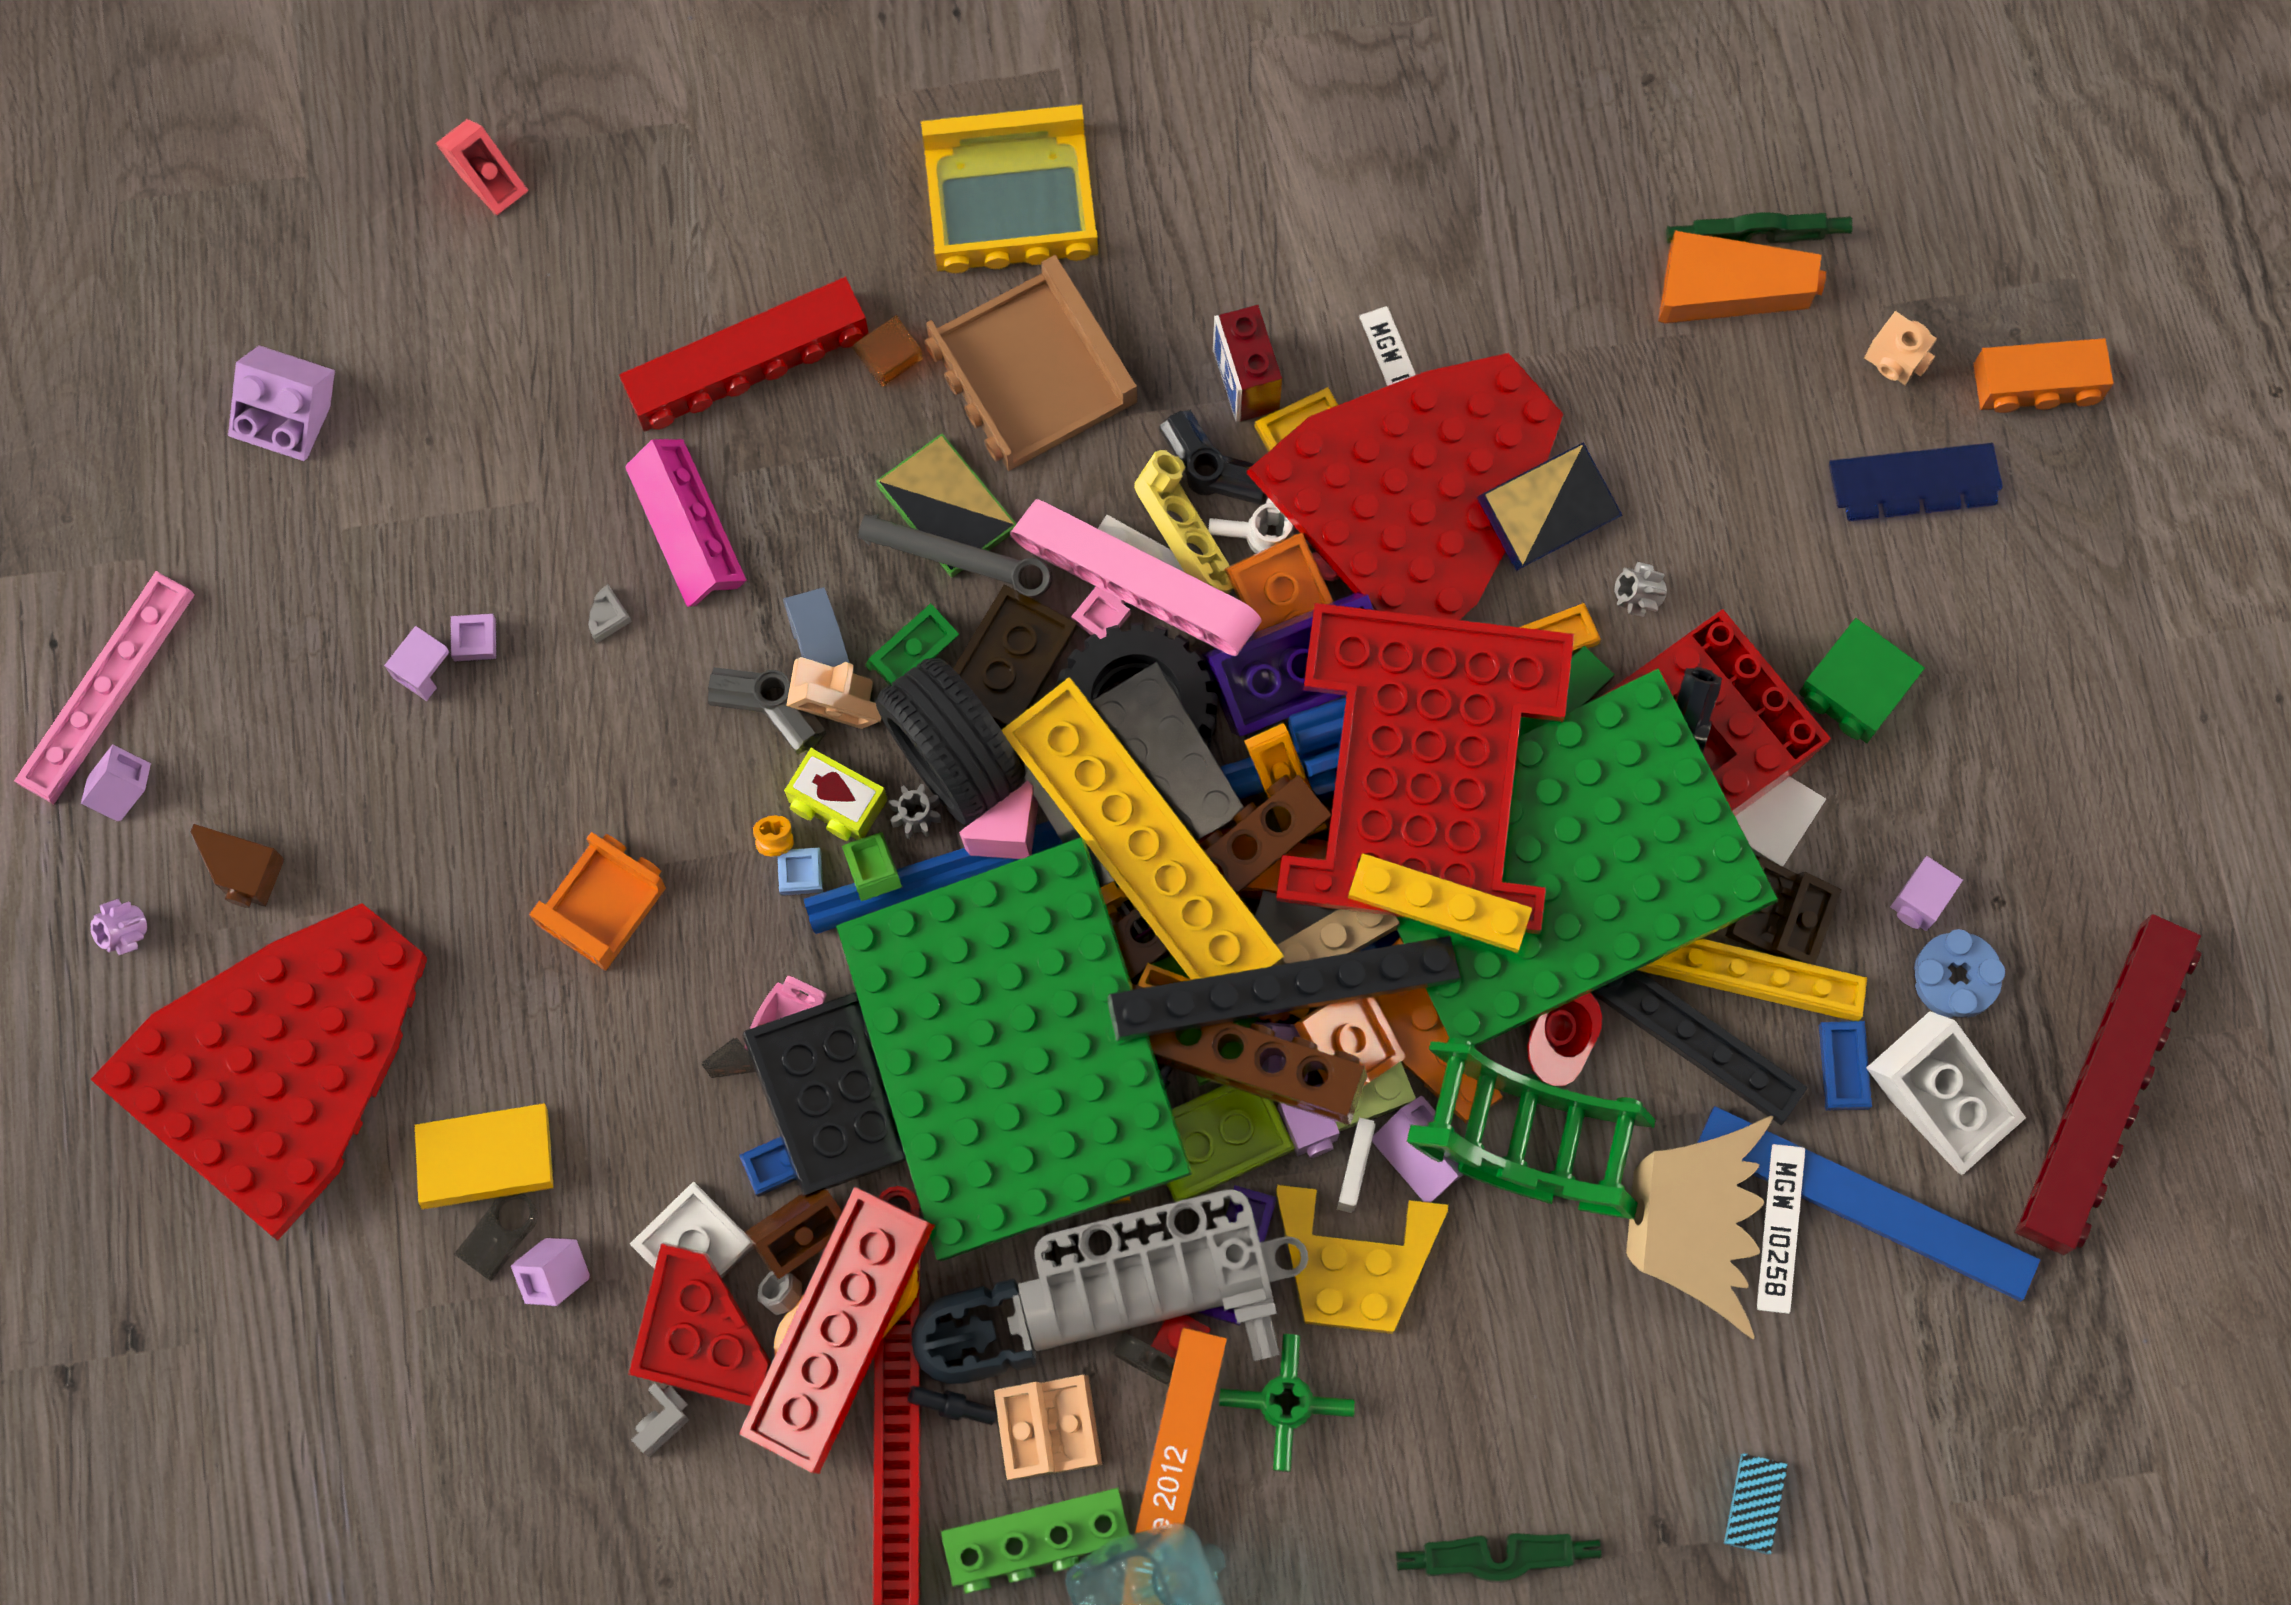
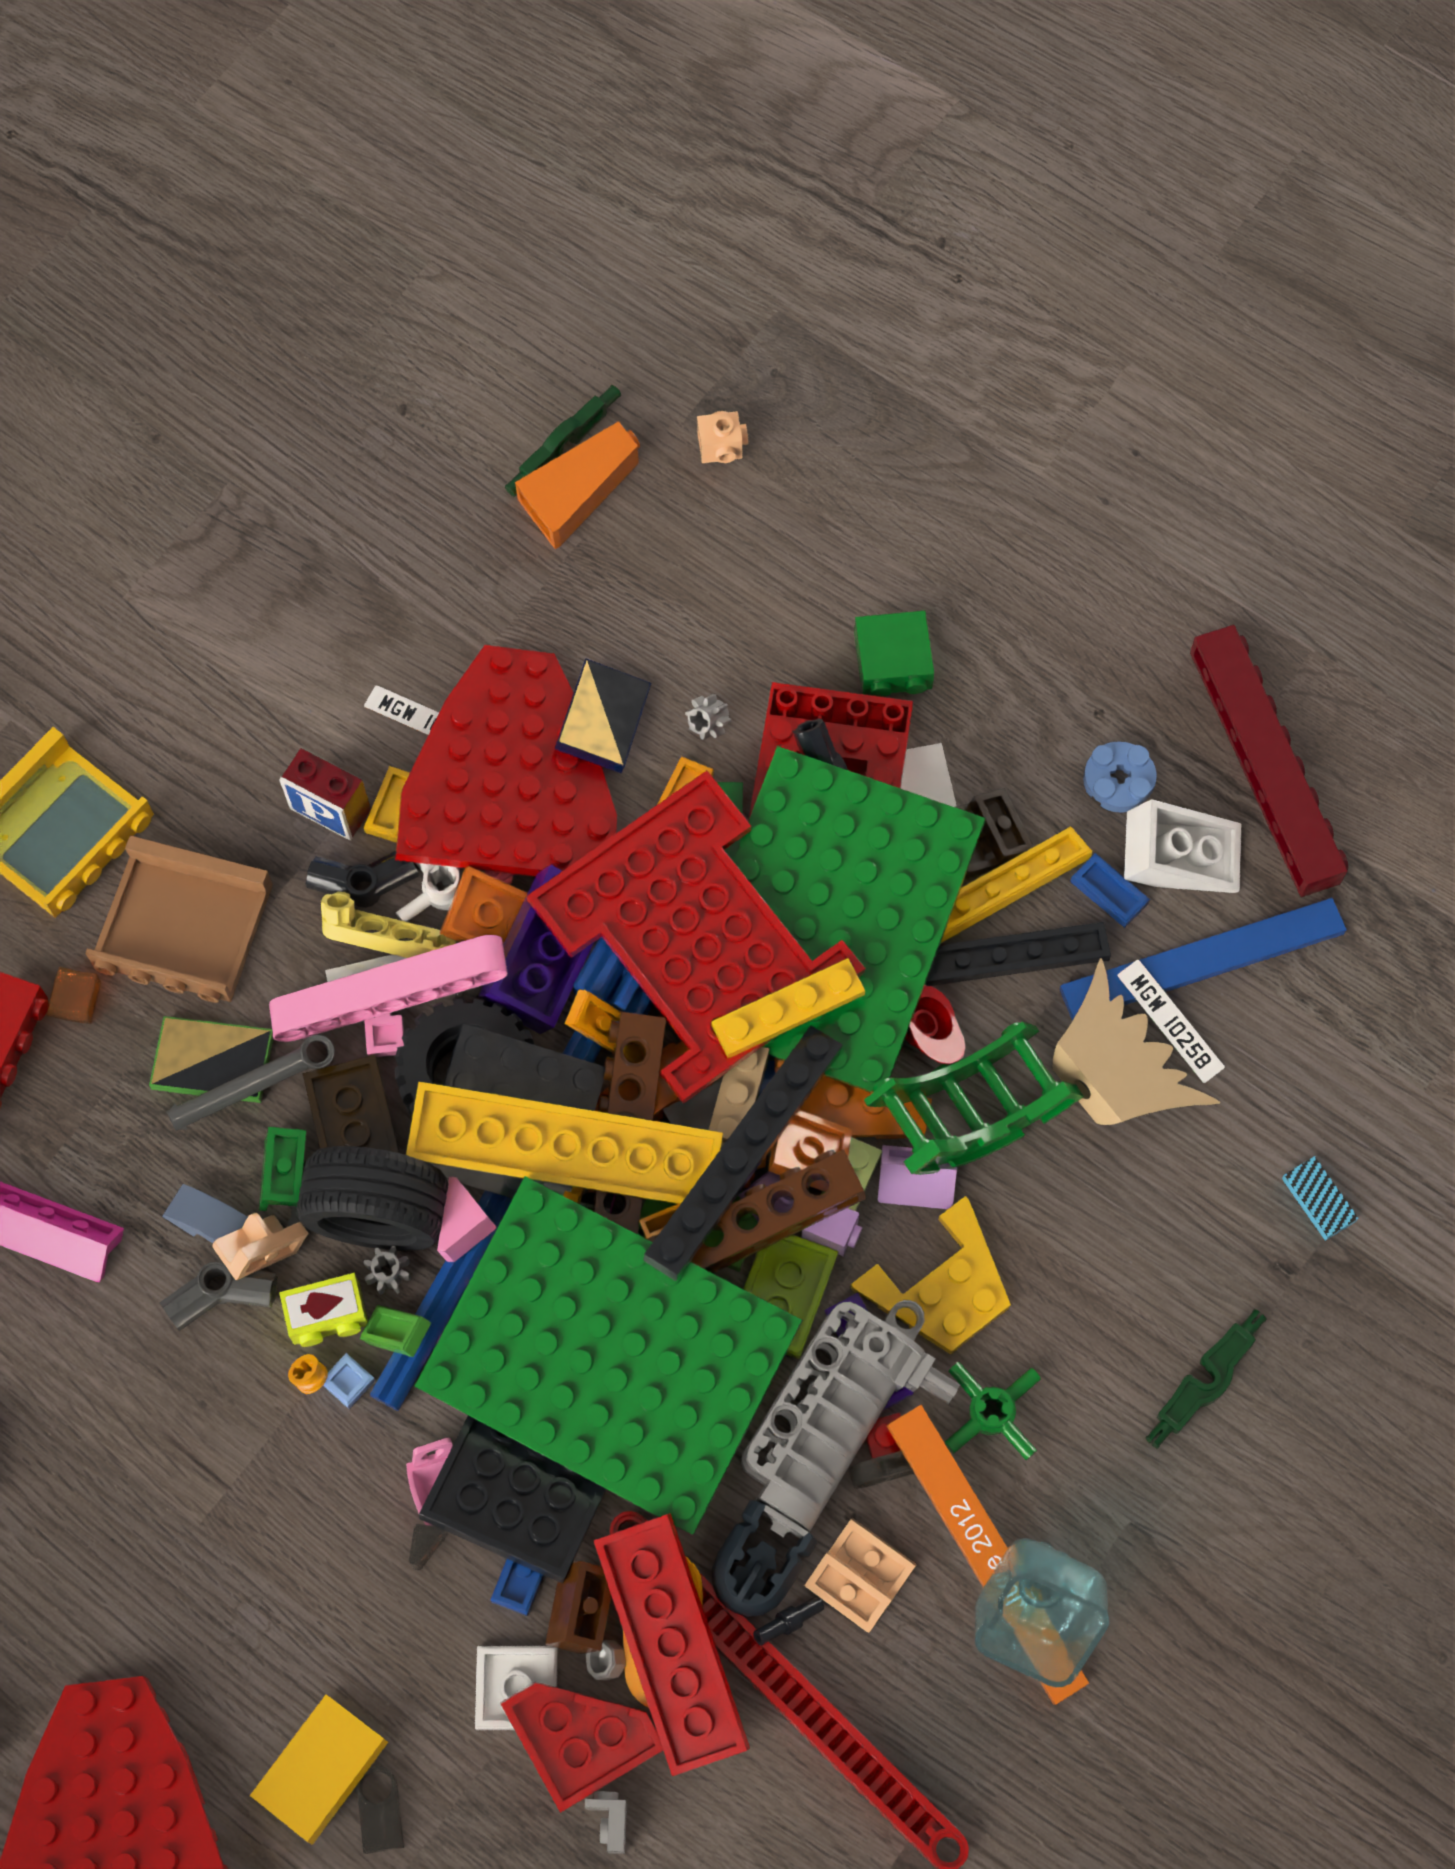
camera: 45 degrees left, 5 degrees down
(550, 1271) = (440, 1799): lavender panel -> none
(601, 901) = (231, 1526): orange panel -> none
(606, 615) = (48, 1338): light grey tile -> none
(1032, 1539) = (923, 1653): bright green brick -> none
(1356, 1165) = (887, 1225): white tile -> none
(1906, 477) = (799, 510): clear blue windscreen -> none
(1925, 894) = (1055, 745): lavender brick -> none
(2043, 375) = (817, 382): orange brick -> none

